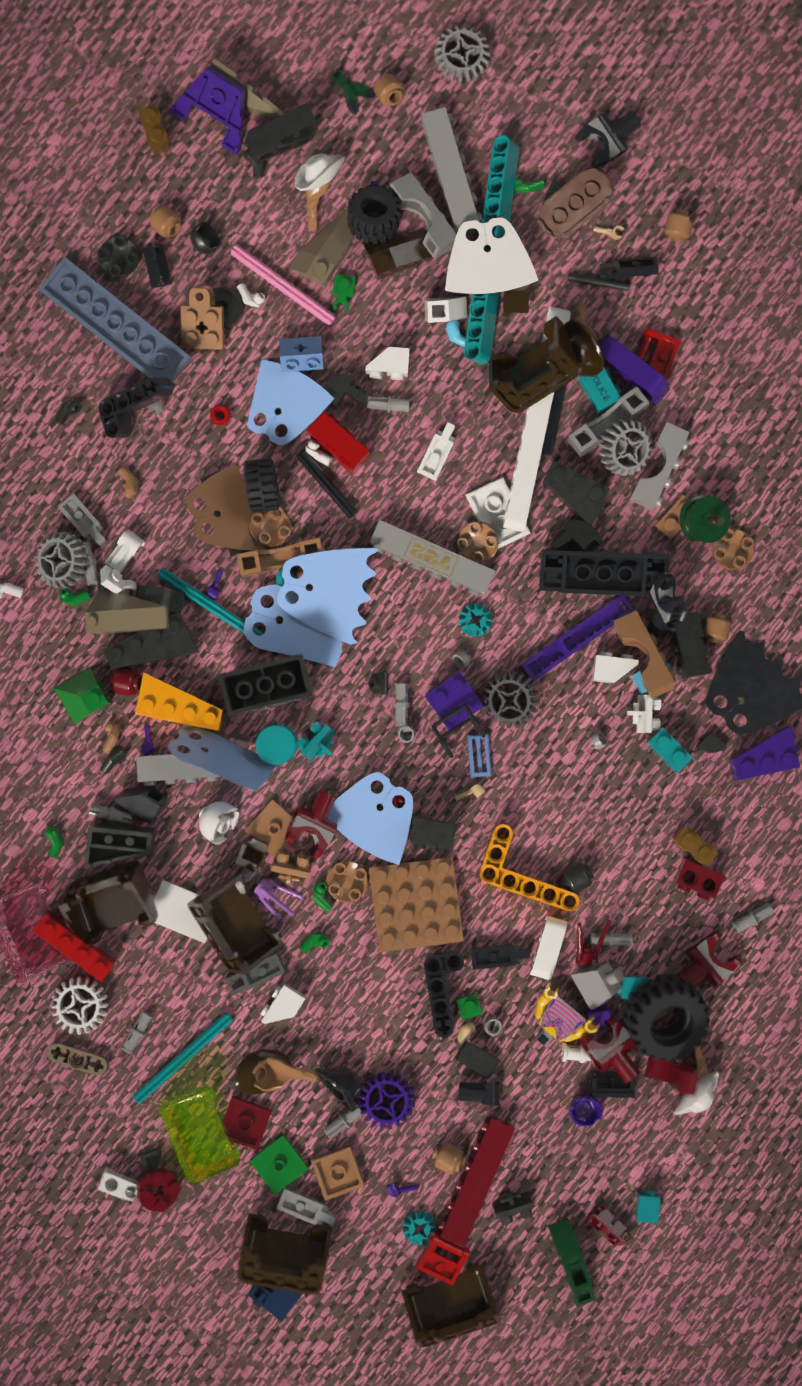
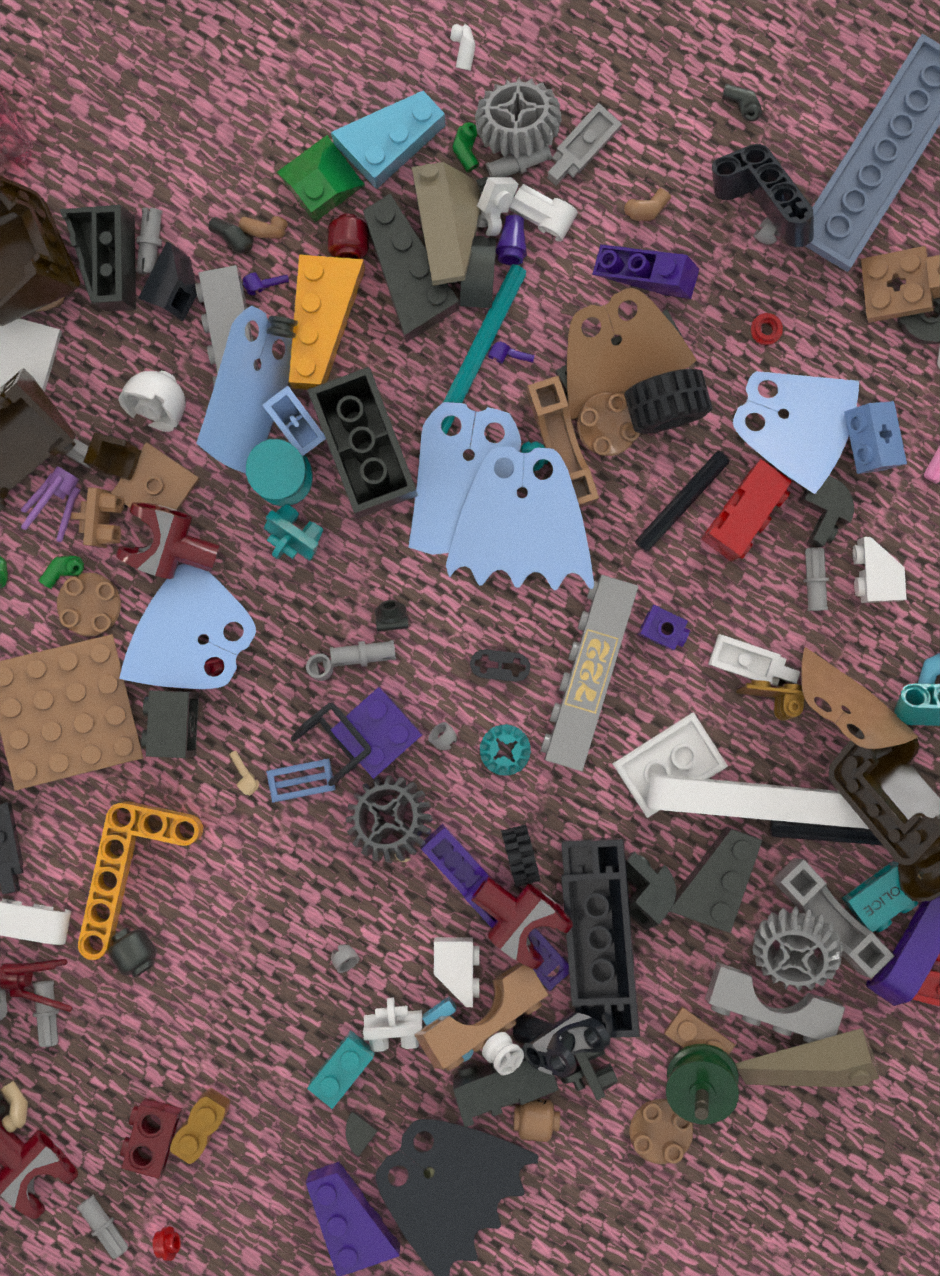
camera: 85 degrees right, 0 degrees up
(56, 839) = (101, 166): green arm -> none
(62, 645) = (389, 136): none -> medium azure wedge
(143, 574) = (512, 243): none -> dark purple cone
(172, 488) = (647, 269): none -> dark purple slope
(182, 730) = (282, 326): none -> pearl dark grey bush
(244, 730) = (294, 421): none -> light blue slope
(312, 449) = (724, 485): white arm -> none
(405, 513) = (652, 628): none -> dark purple brick
(425, 617) = (499, 673): none -> black beam
(464, 432) = (788, 699): none -> pearl gold hinge
(479, 382) = (868, 713): none -> medium nougat piece
(480, 539) = (627, 743): medium nougat dish -> none
(545, 617) = (520, 855): none -> black tyre
(584, 623) = (518, 918): none -> dark red connector
(668, 964) = (18, 1107): none -> tan arm
(669, 643) = (503, 1053): none -> white wheel
(695, 585) = (598, 1079): none -> pearl dark grey hips
(699, 437) = (828, 1062): none -> dark tan wedge
(768, 877) = (166, 1243): none -> red plate

